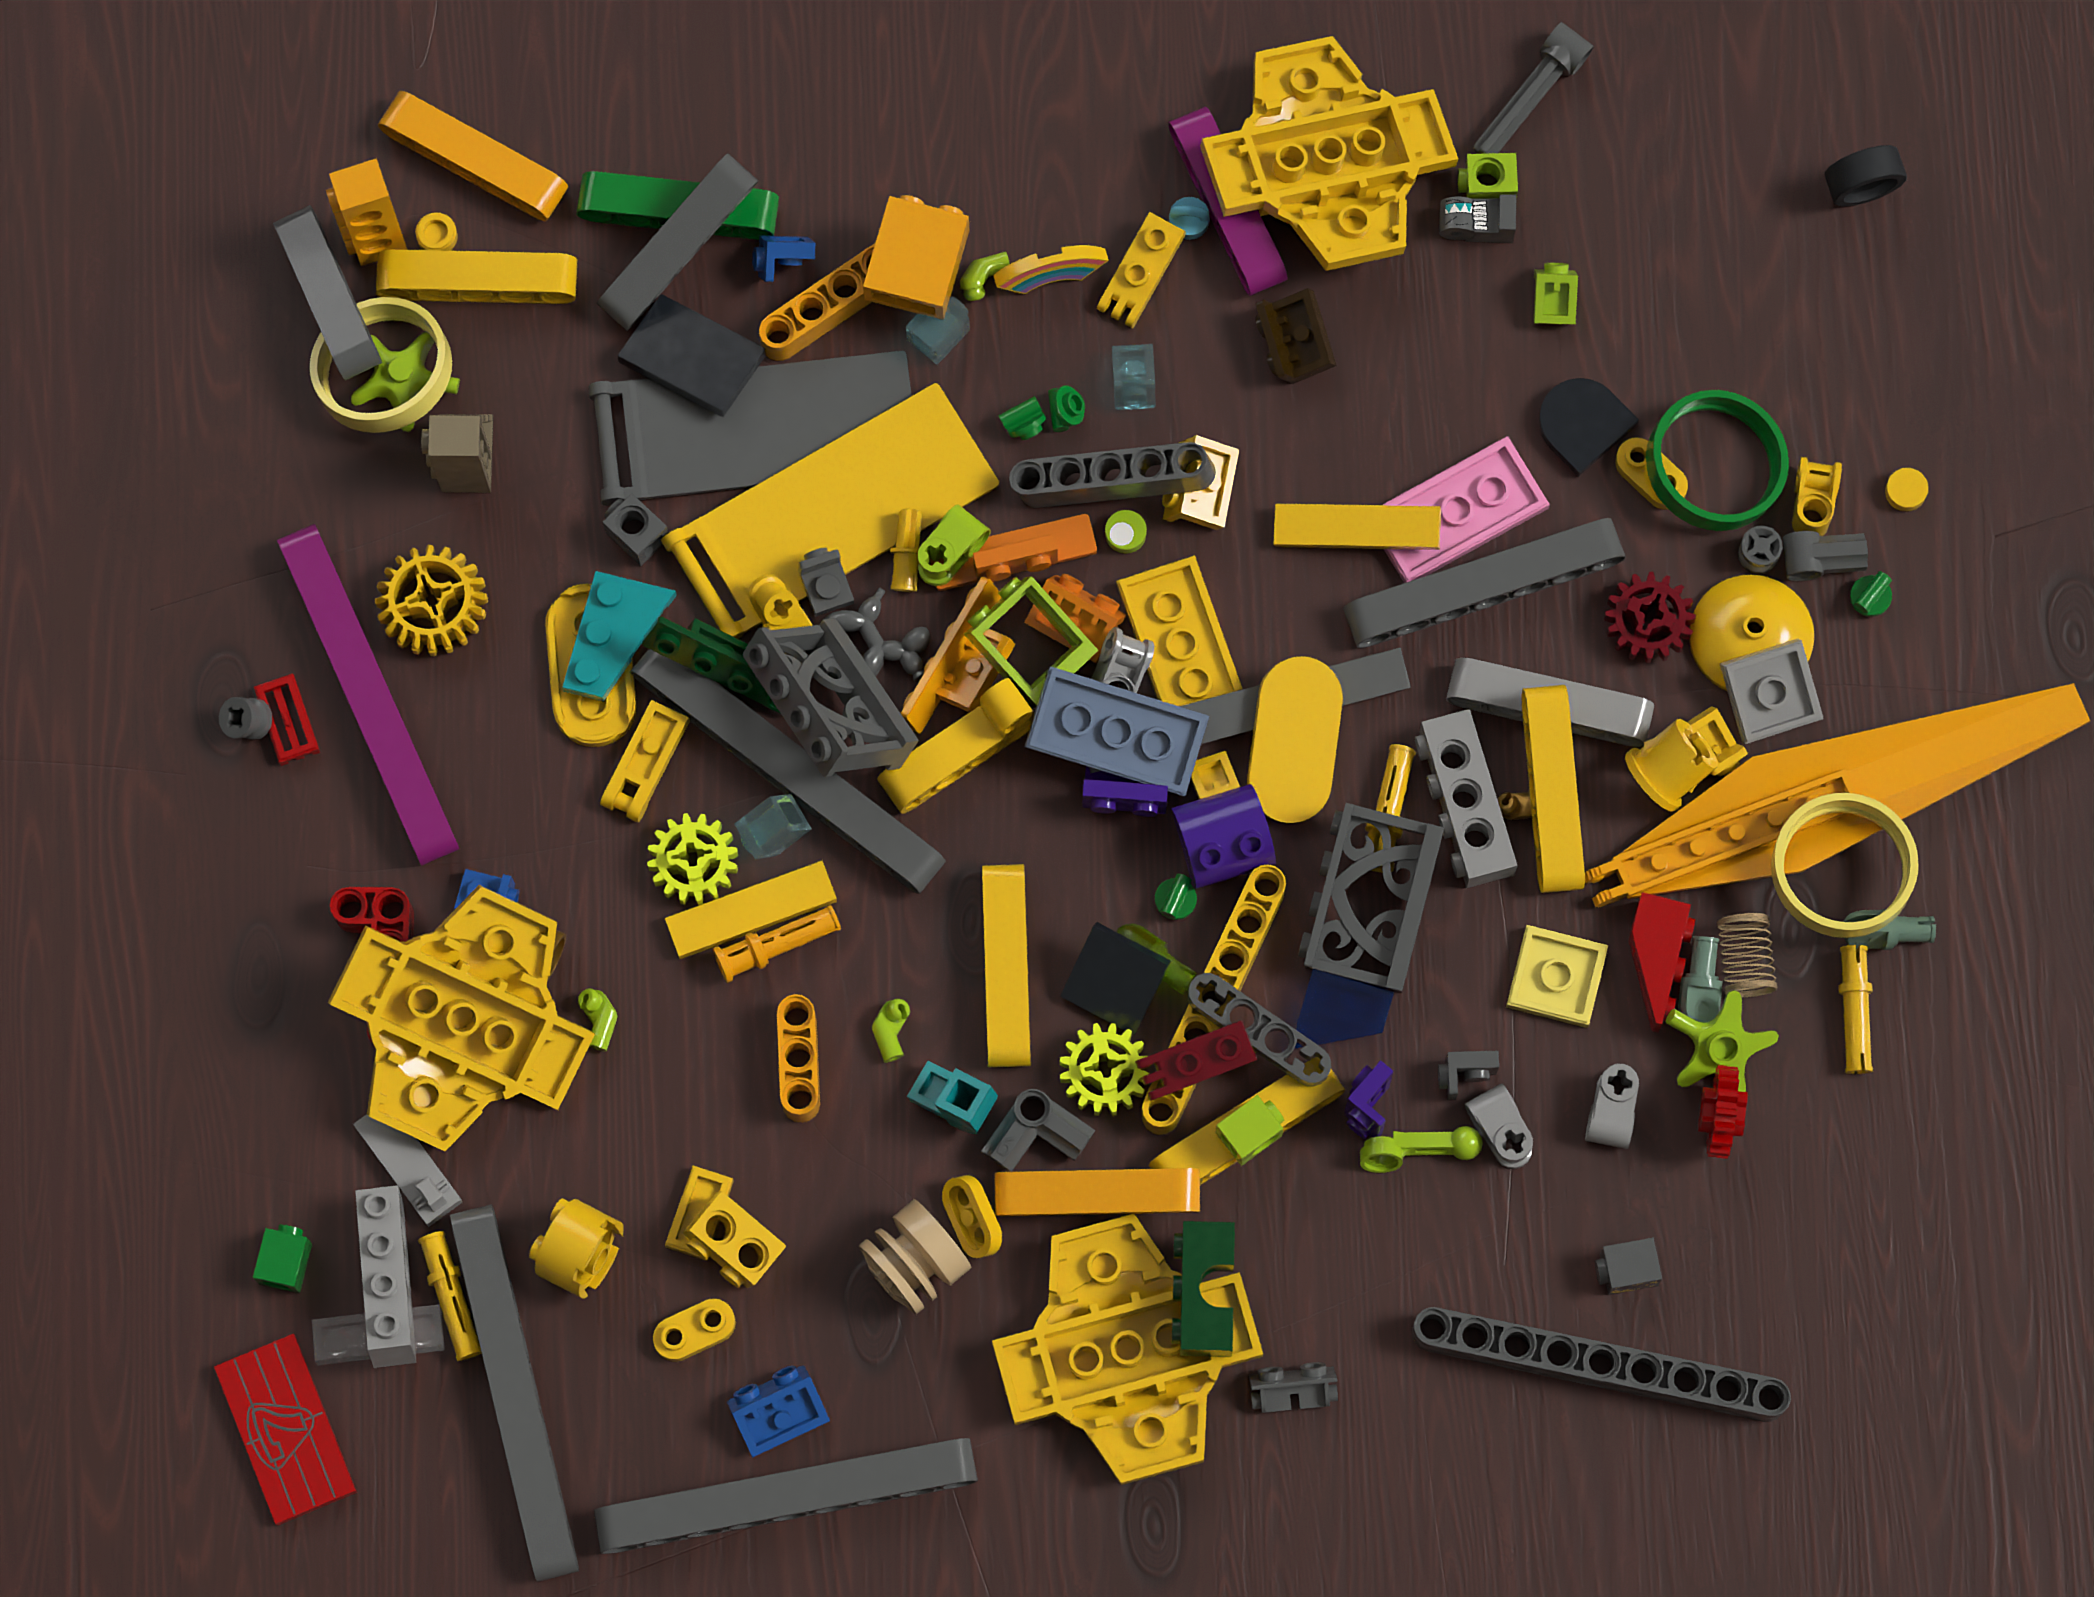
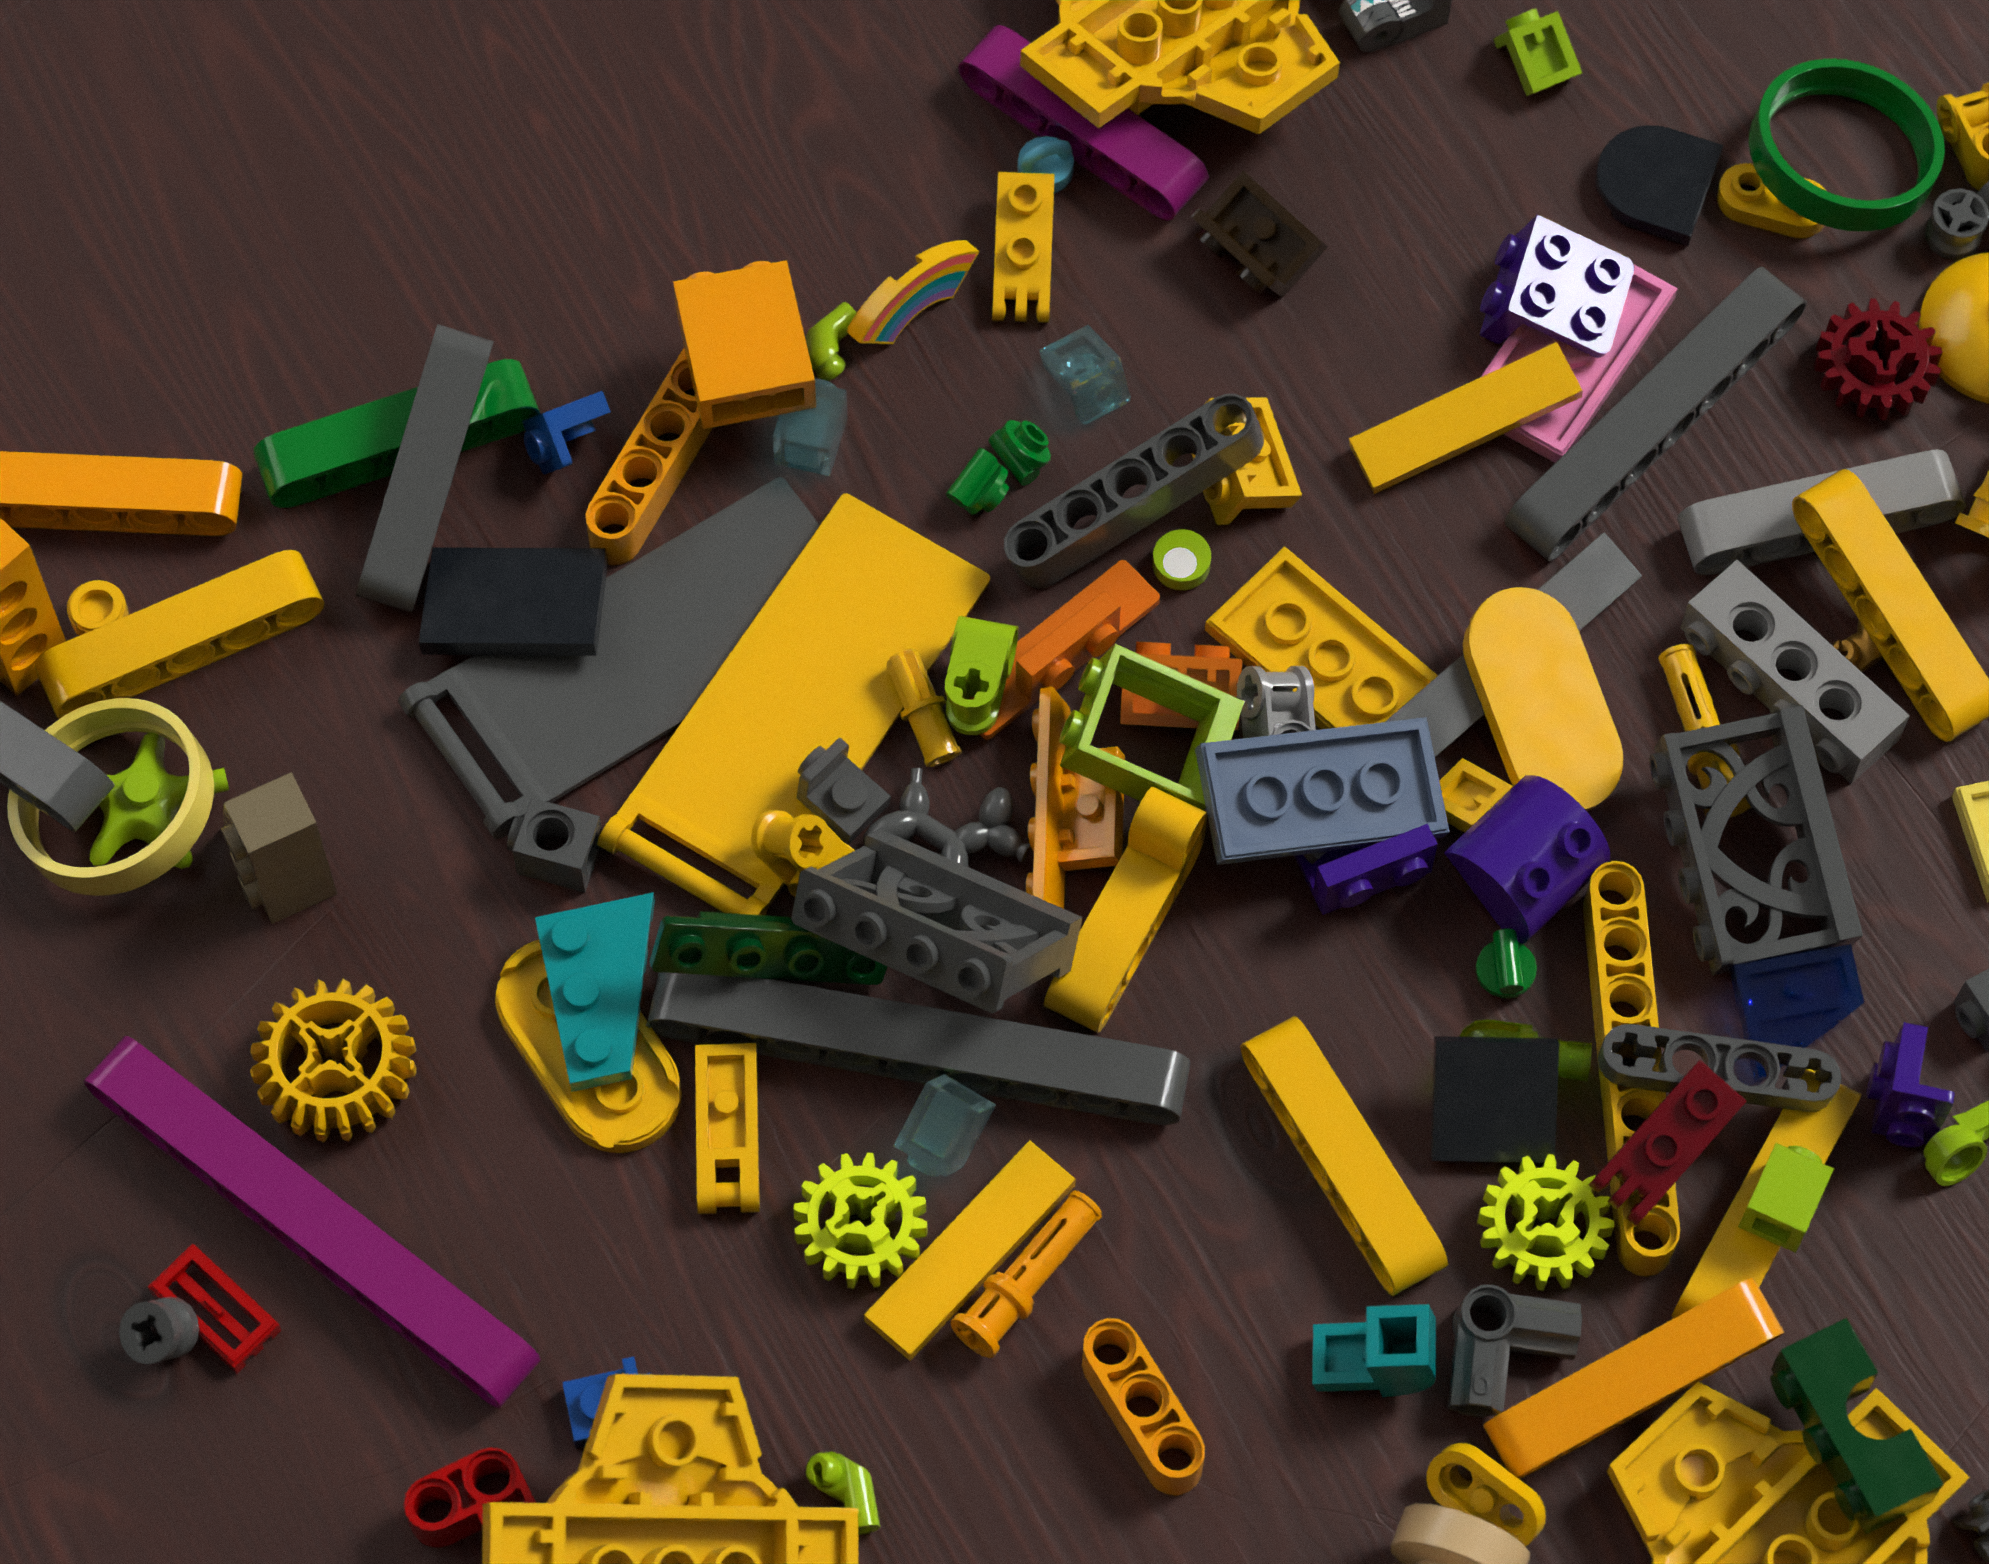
camera: 30 degrees left, 10 degrees down
(887, 1026) = (1233, 1309): lime arm -> none
(1468, 469) = (1557, 287): none -> bracket

